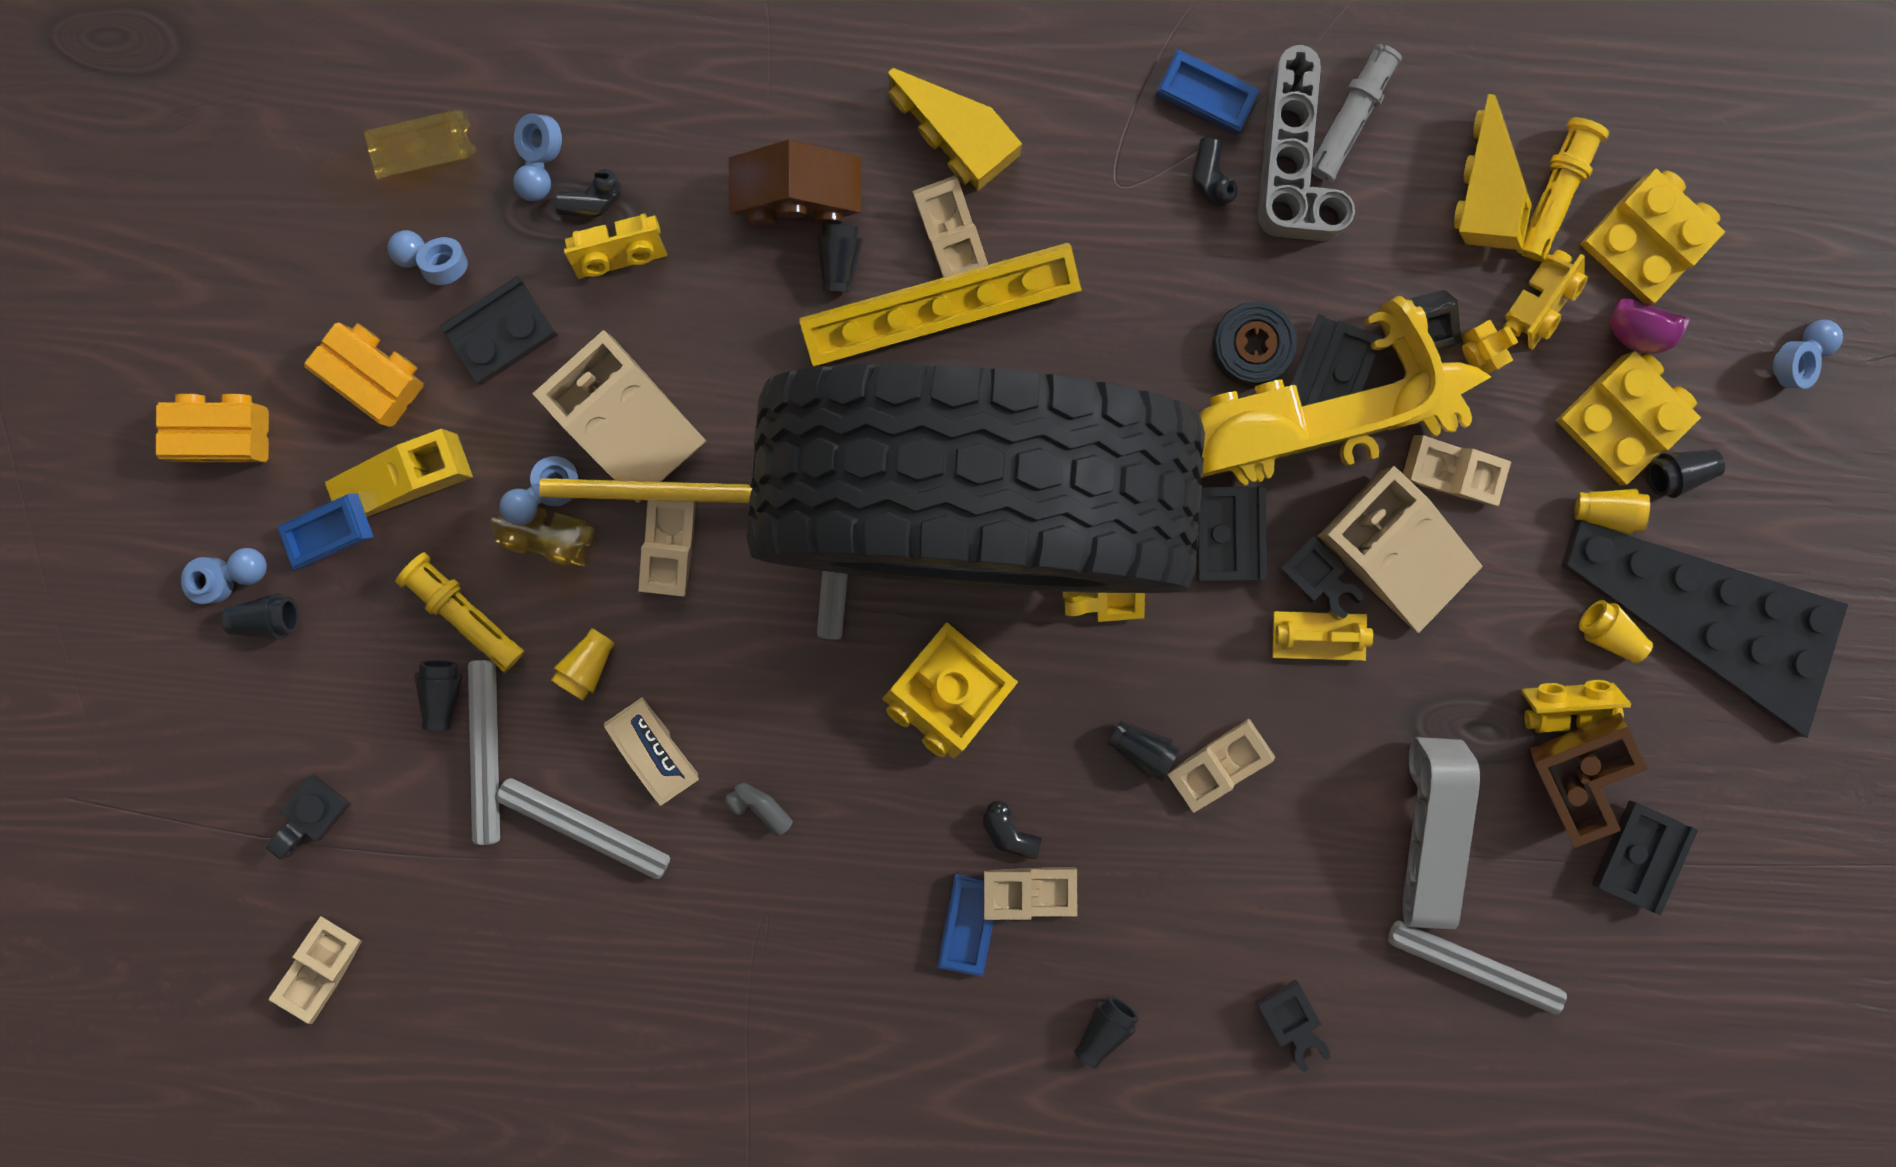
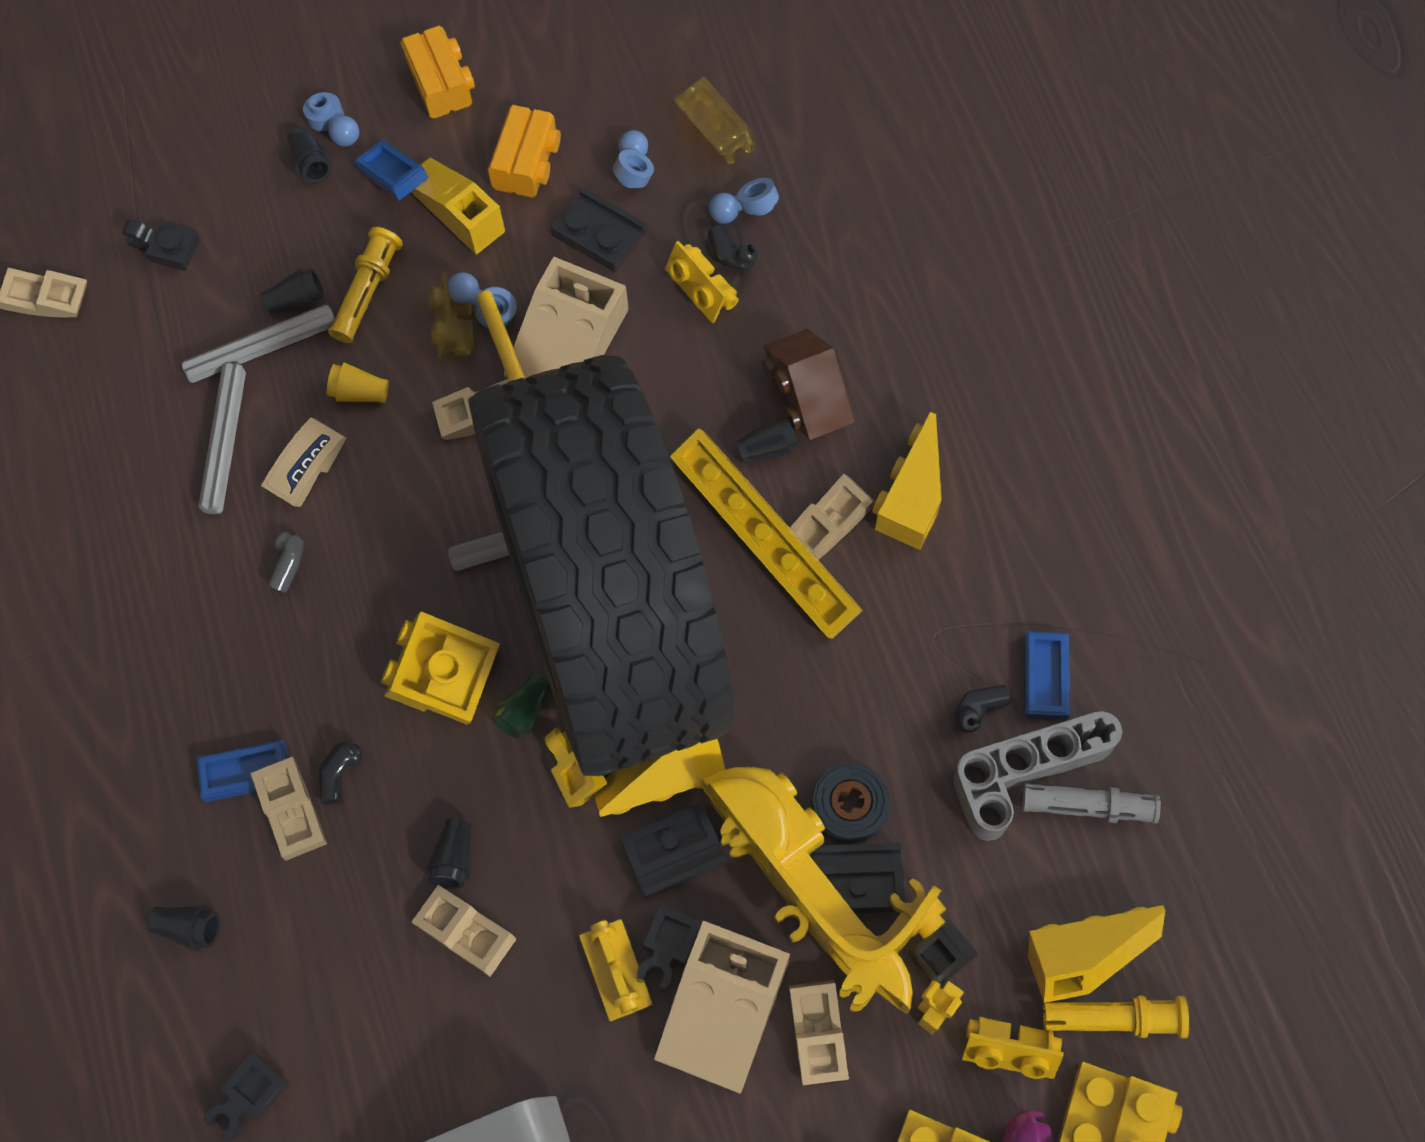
camera: 70 degrees right, 20 degrees down
(1023, 626) = (521, 707): none -> clear green cone

